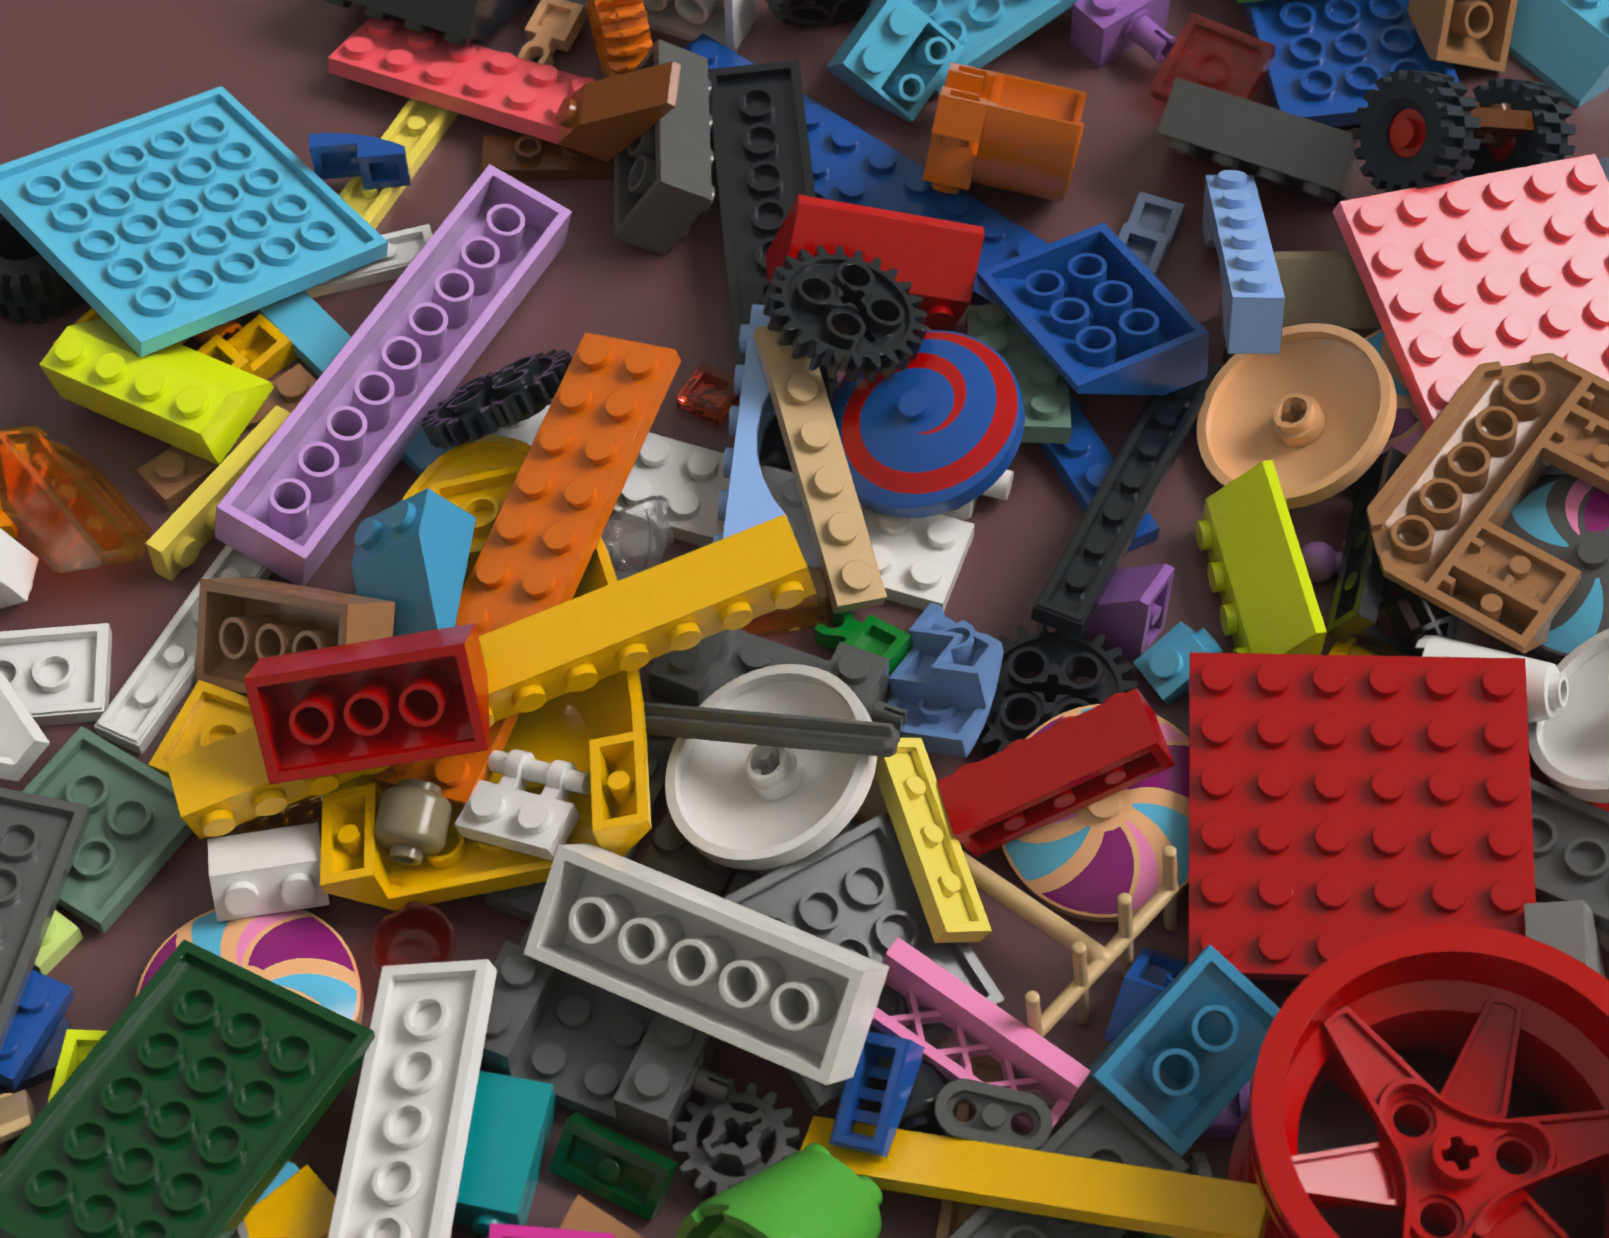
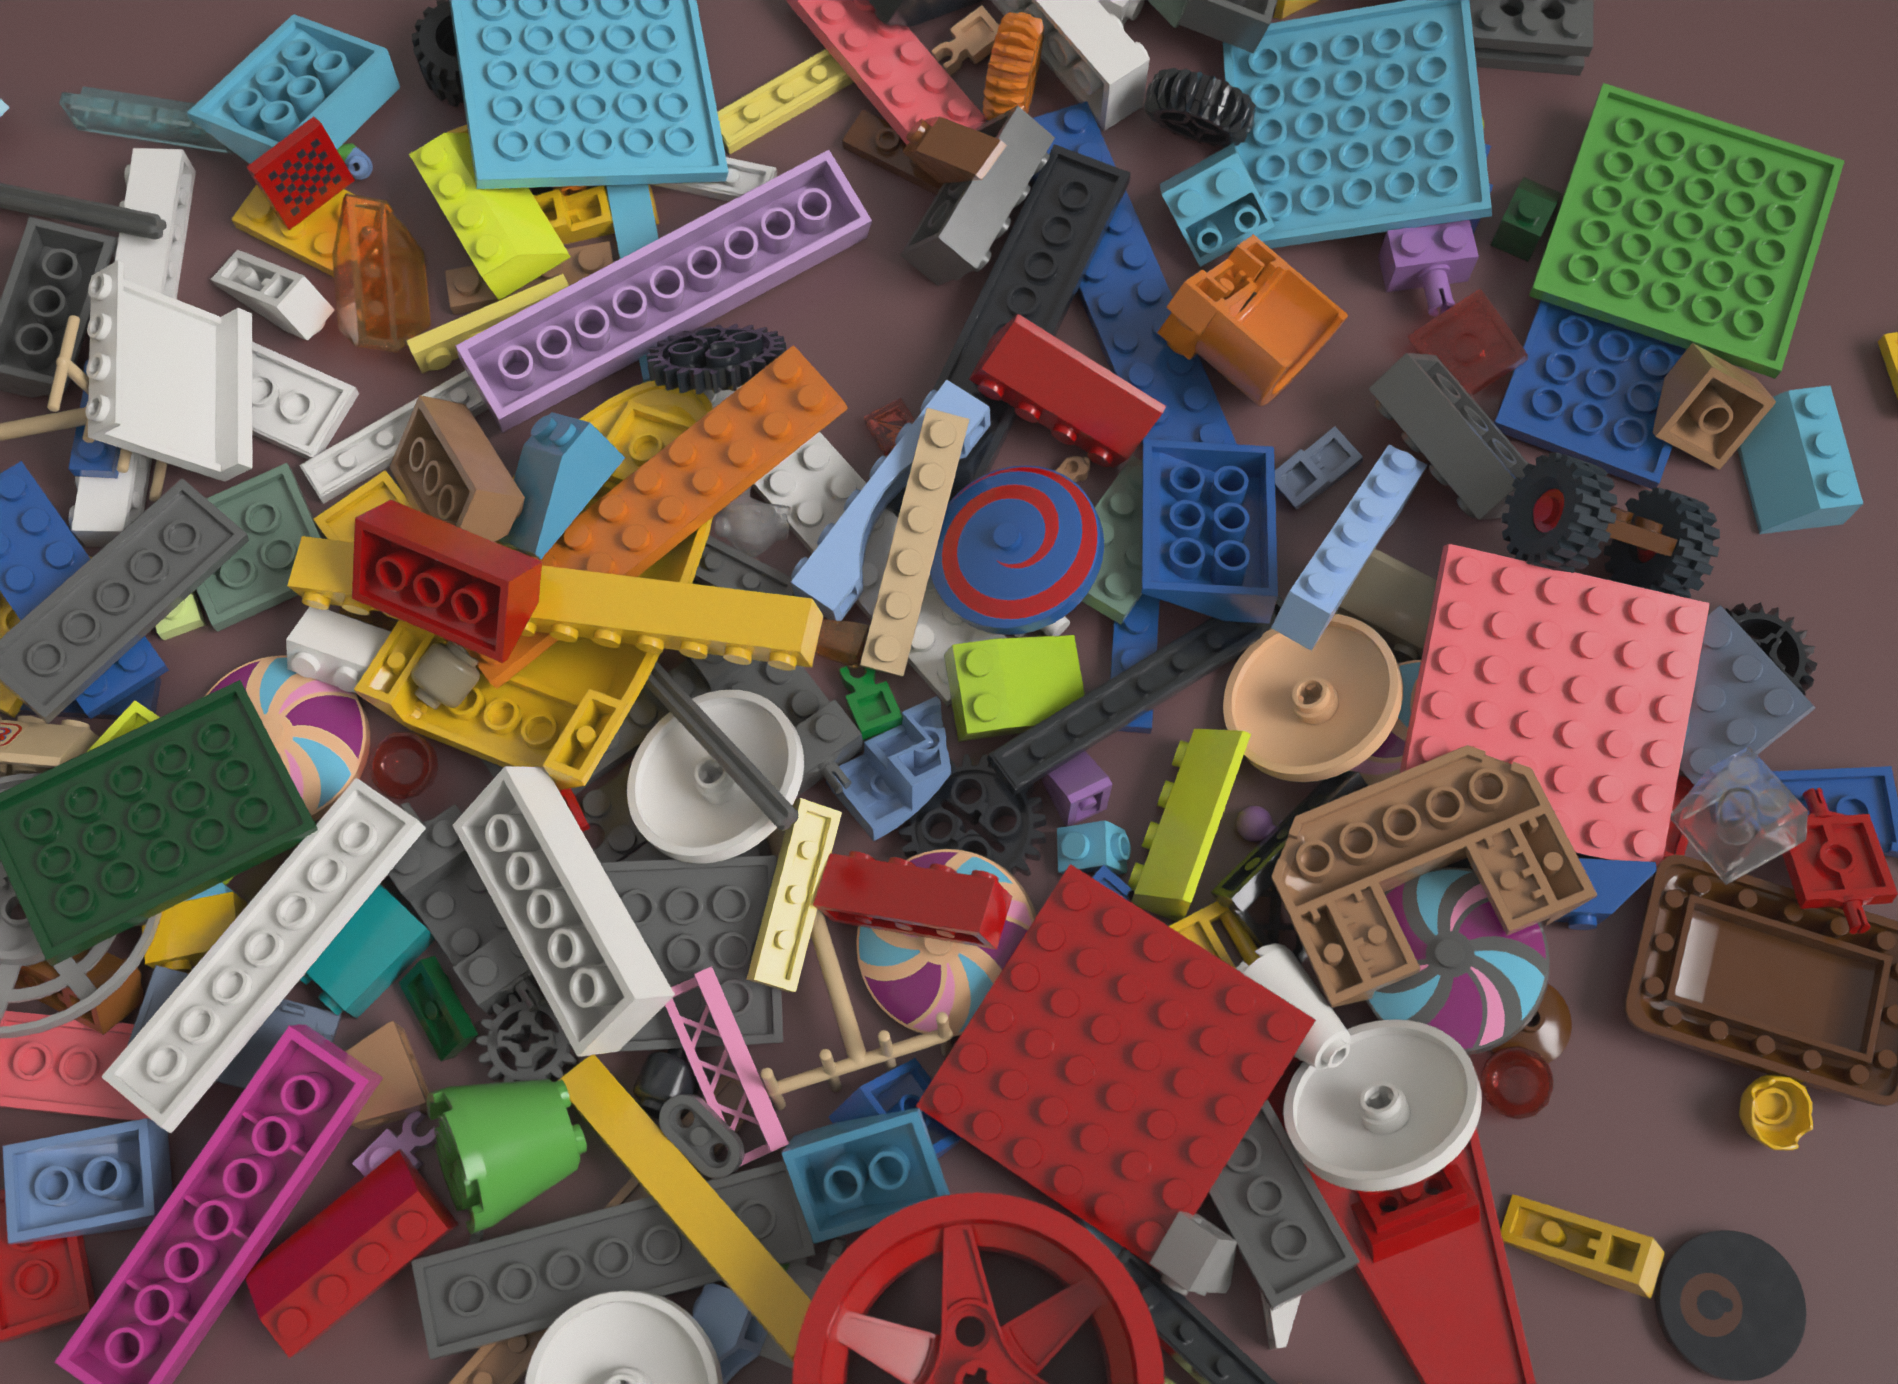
camera: 30 degrees right, 15 degrees up
(353, 155) = (758, 94): blue slope -> none
(520, 819) = (516, 717): white plate -> none
(845, 314) = (961, 430): black gear -> none
(900, 1078) = (656, 1066): blue slope -> none
(993, 553) = (1011, 683): none -> lime slope

